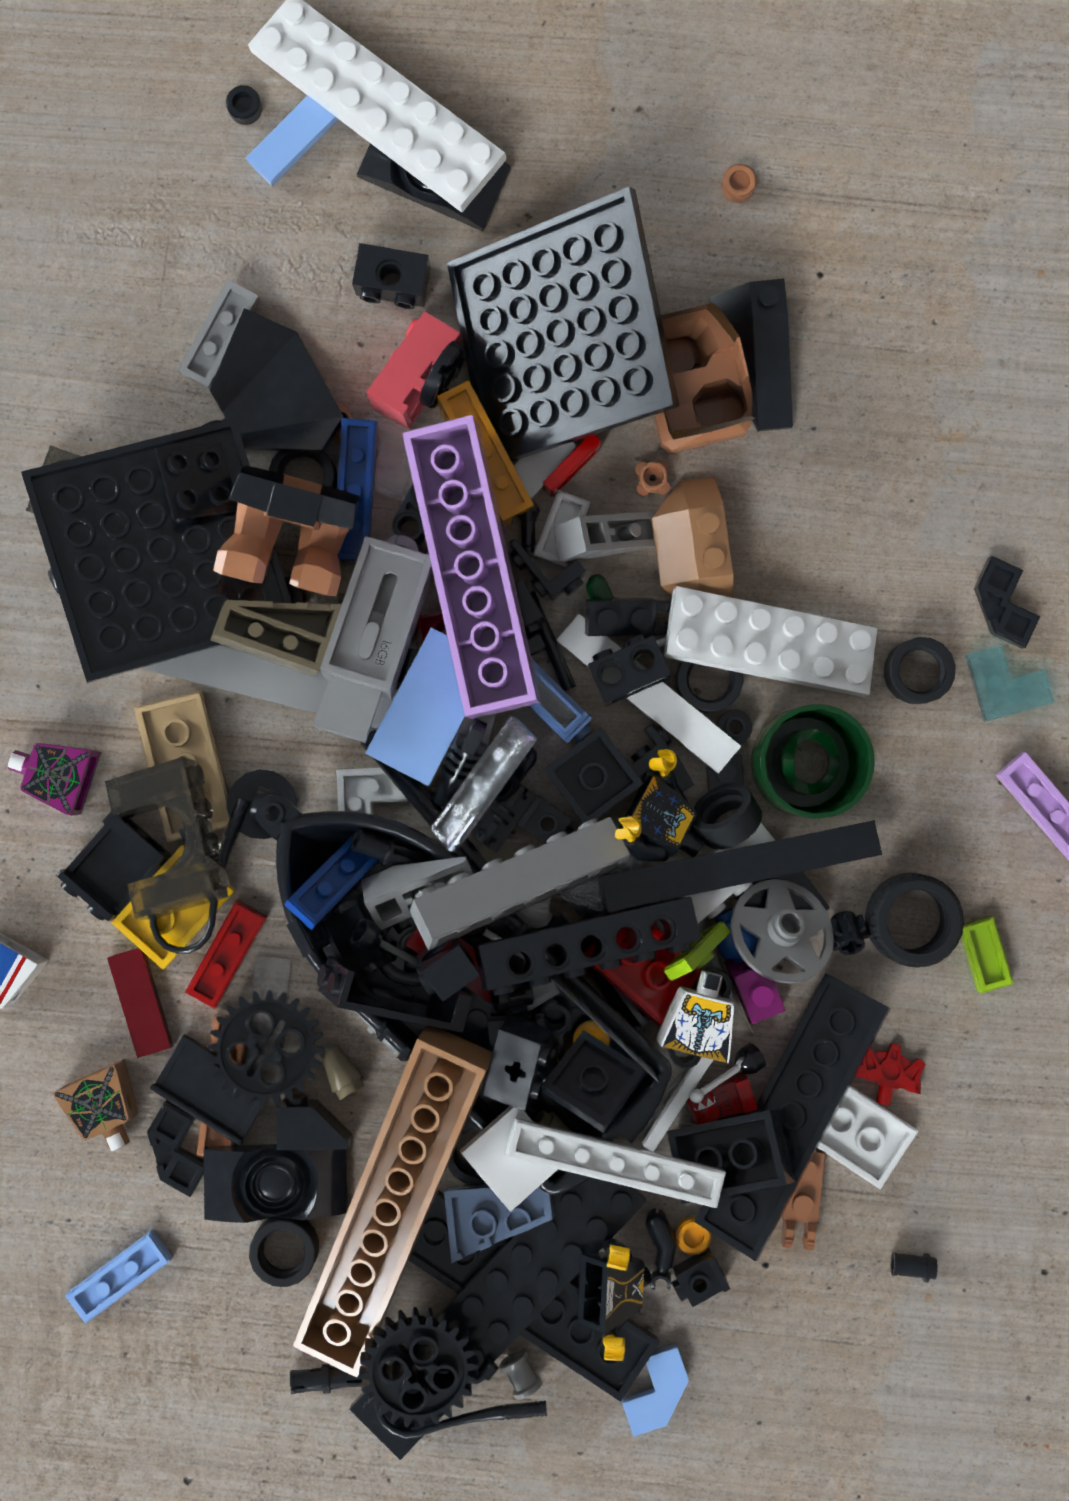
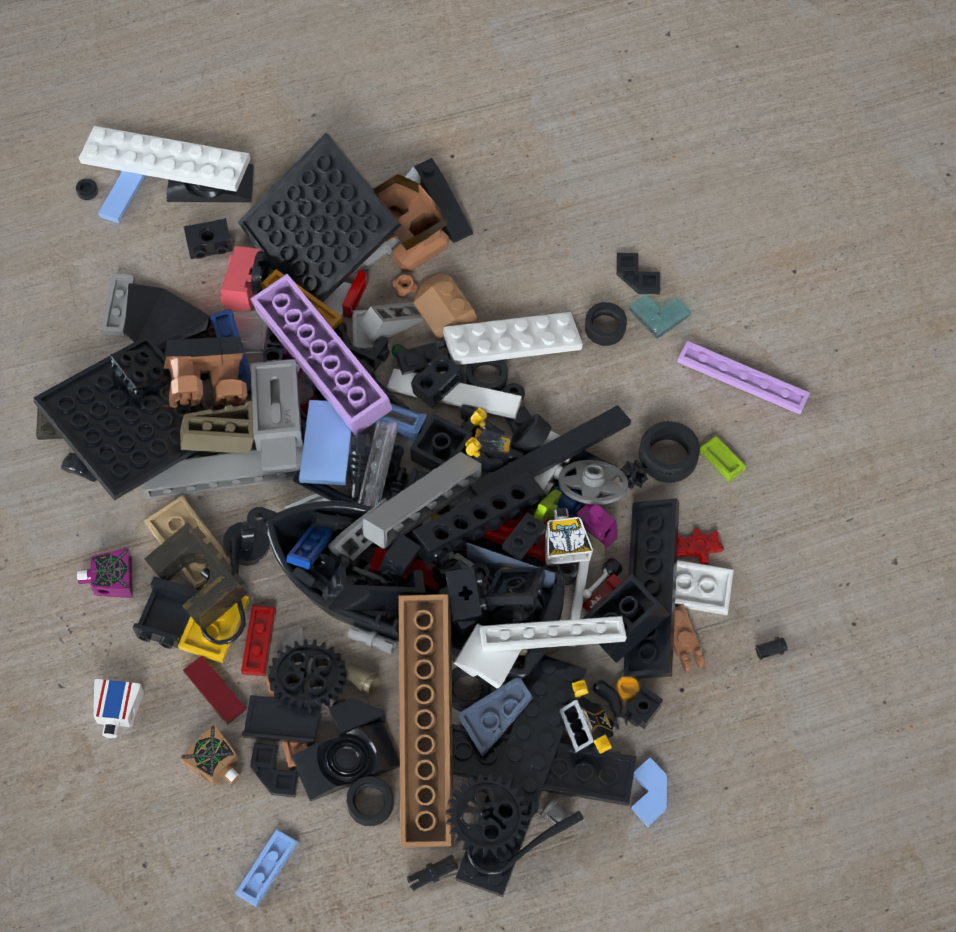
camera: 25 degrees left, 25 degrees down
(640, 1003) = (526, 533): none -> black bracket
(738, 183) = (385, 128): nougat tile -> none
(848, 754) = (565, 367): dark green piece -> none

